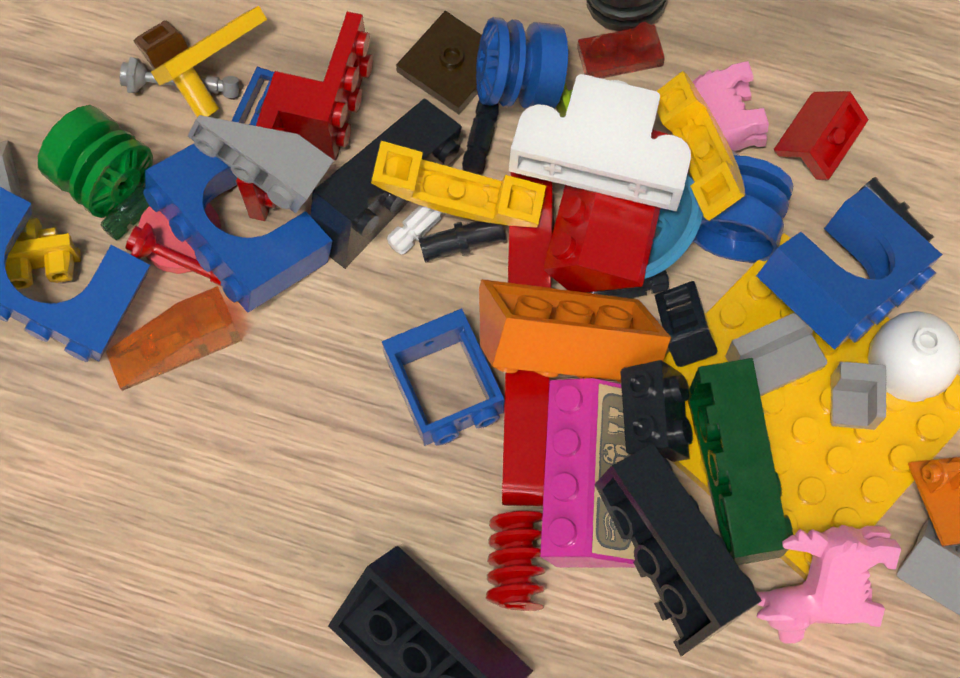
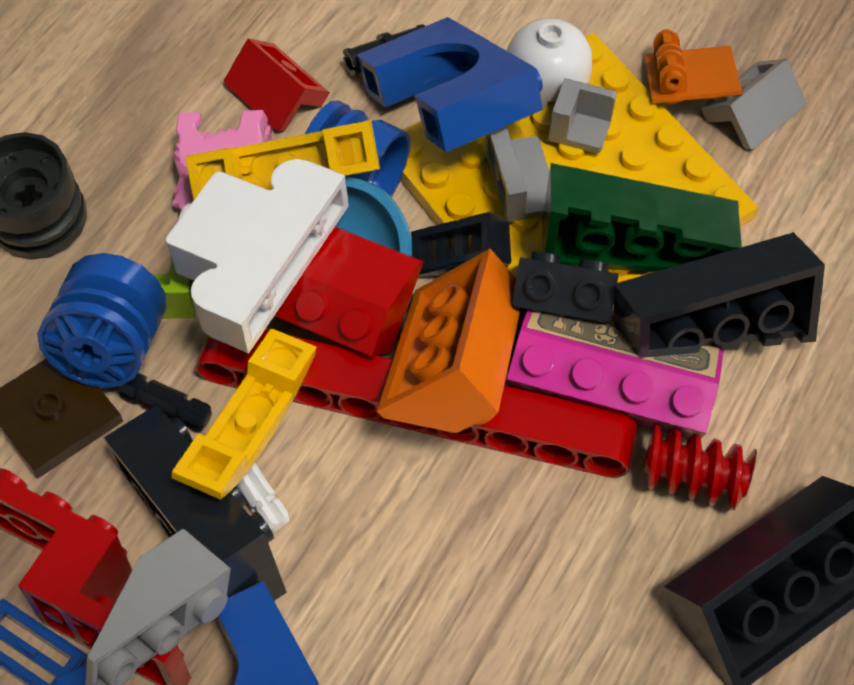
camera: 80 degrees left, 10 degrees down
(427, 340) = (461, 458): blue window -> none
(460, 239) = (293, 449): black pin -> none
(621, 51) = (110, 223): clear red tile -> none
(836, 582) = (764, 178): bright pink animal -> none

